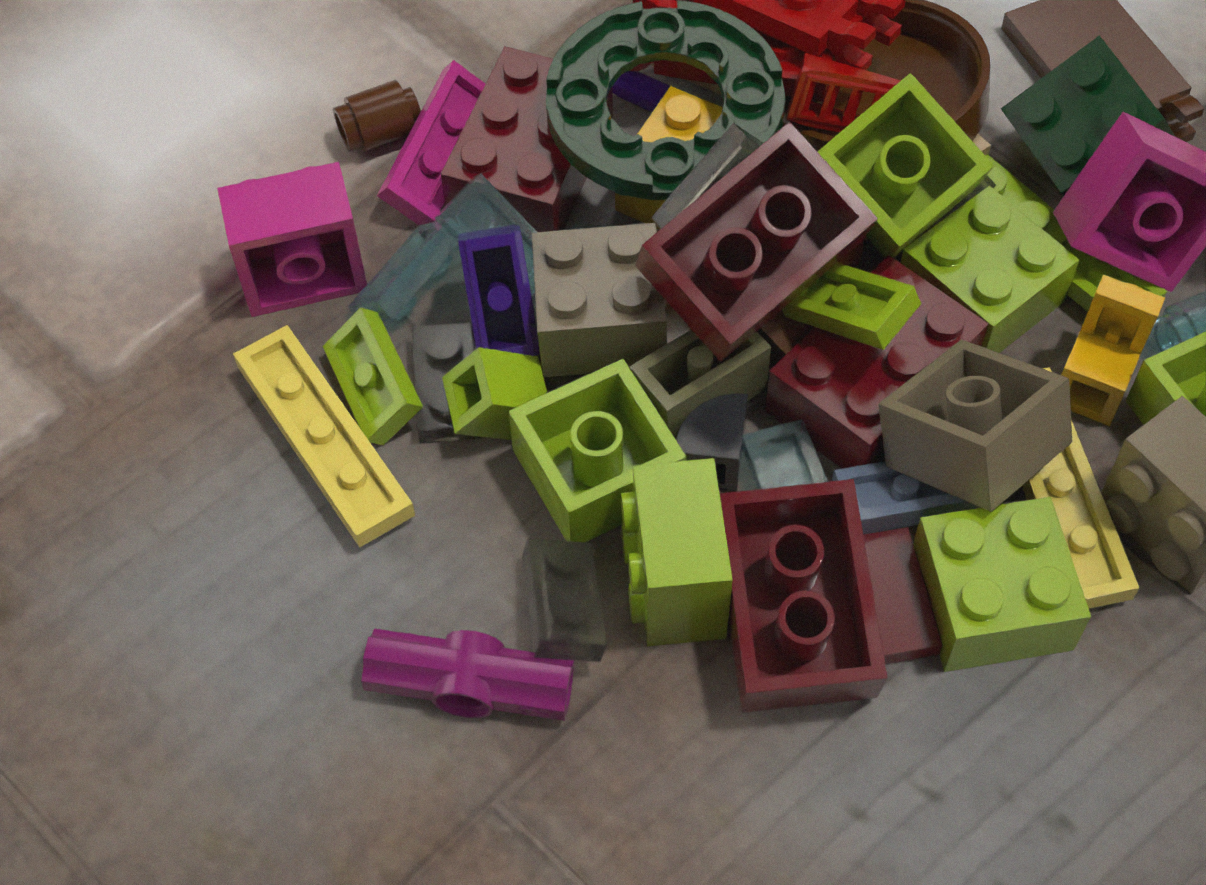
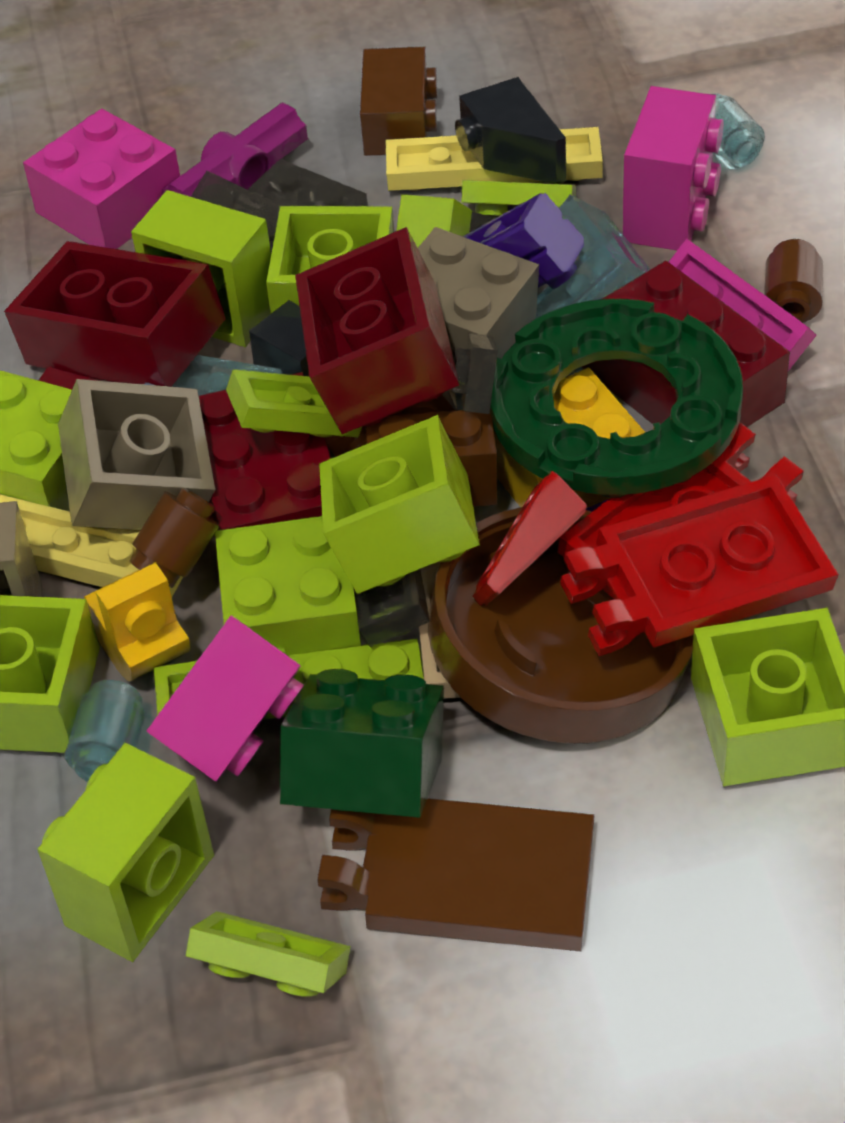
camera: 125 degrees right, 10 degrees down
(178, 252) = (741, 134): none -> clear light blue brick
(276, 571) = (396, 97): none -> reddish brown brick
(308, 391) = (511, 132): none -> black slope
(471, 577) = (296, 186): none -> clear smoke plate
(585, 785) = (100, 178): none -> dark pink brick
(1029, 338) = (175, 534): none -> reddish brown brick

